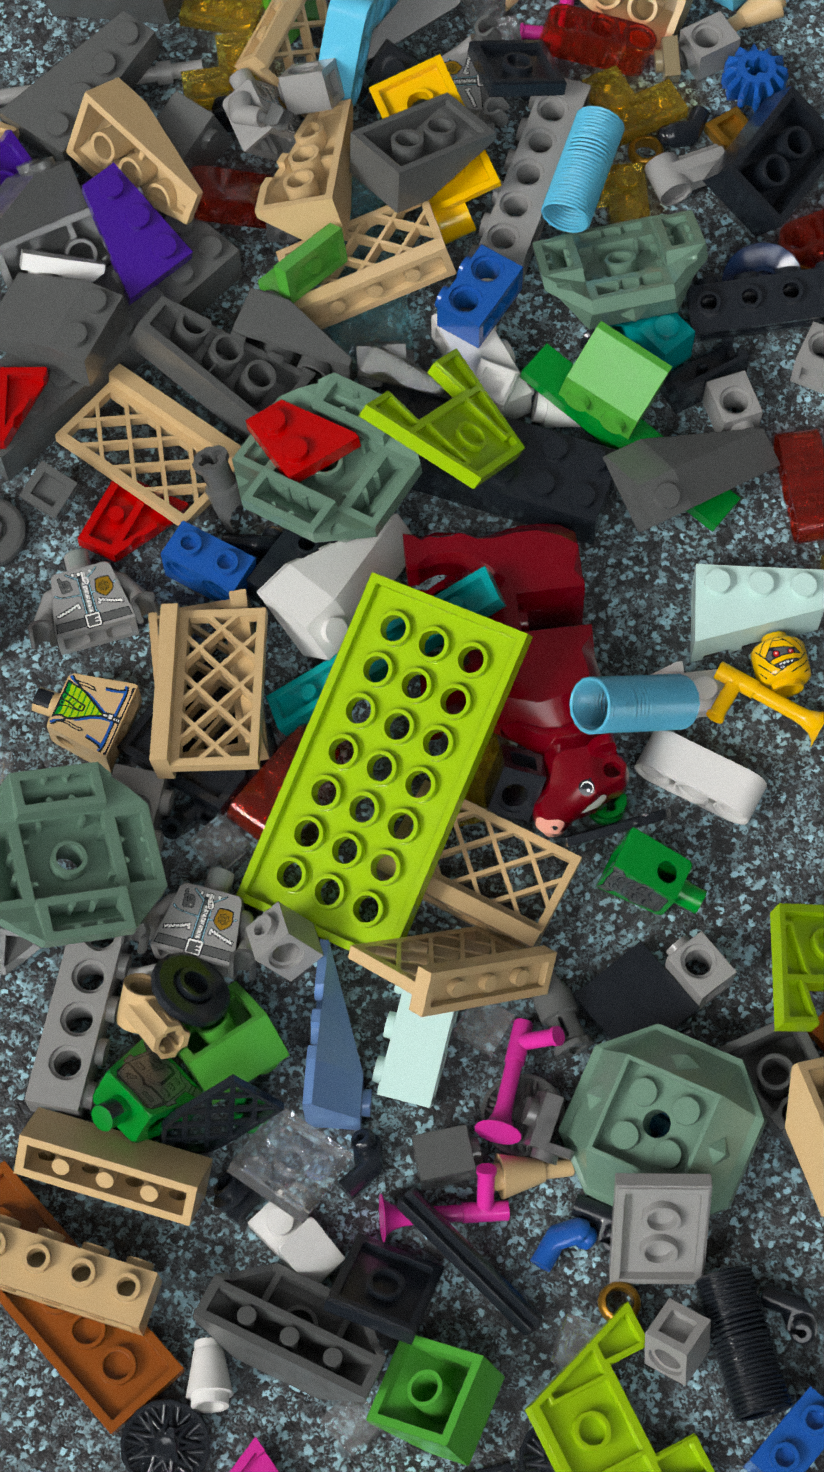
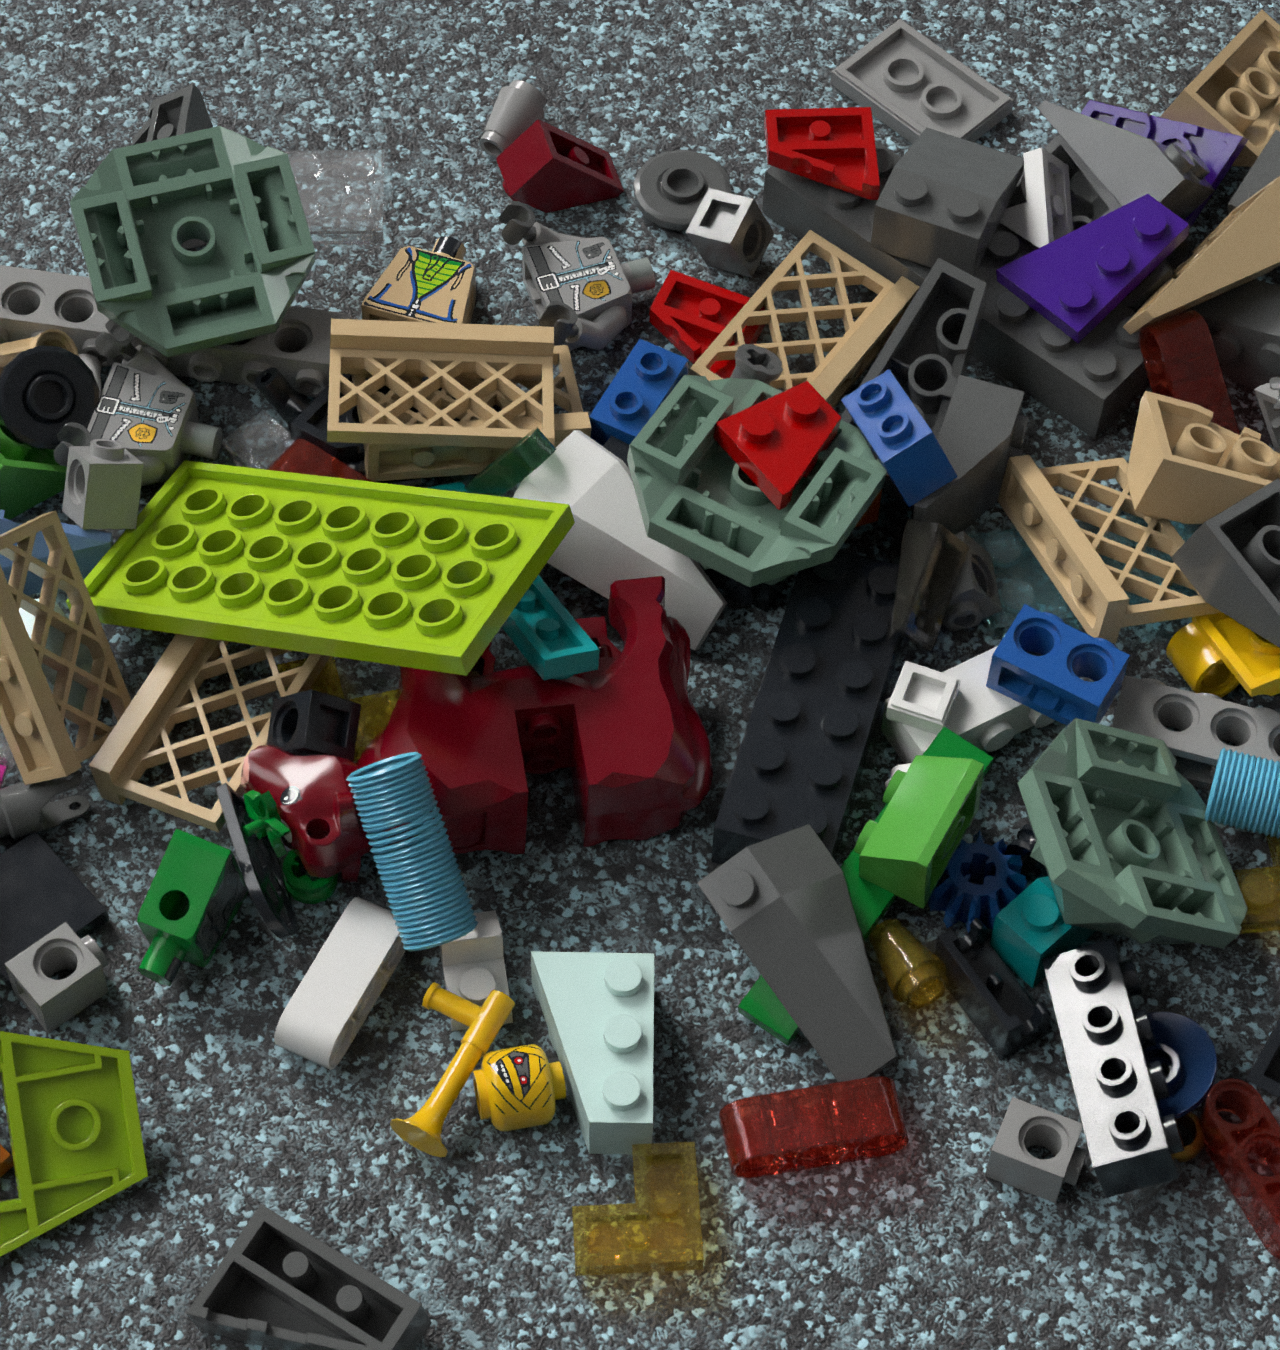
camera: 85 degrees right, 10 degrees down
(288, 641) = (512, 465): none -> clear green beam
(297, 363) = (899, 437): none -> blue brick
(307, 264) = (1077, 463): bright green panel -> none
(461, 436) = (806, 632): lime wing -> none
(594, 812) = (266, 820): none -> green plant
(685, 419) = (909, 966): none -> clear yellow cone
(732, 392) = (945, 1005): light grey brick -> none

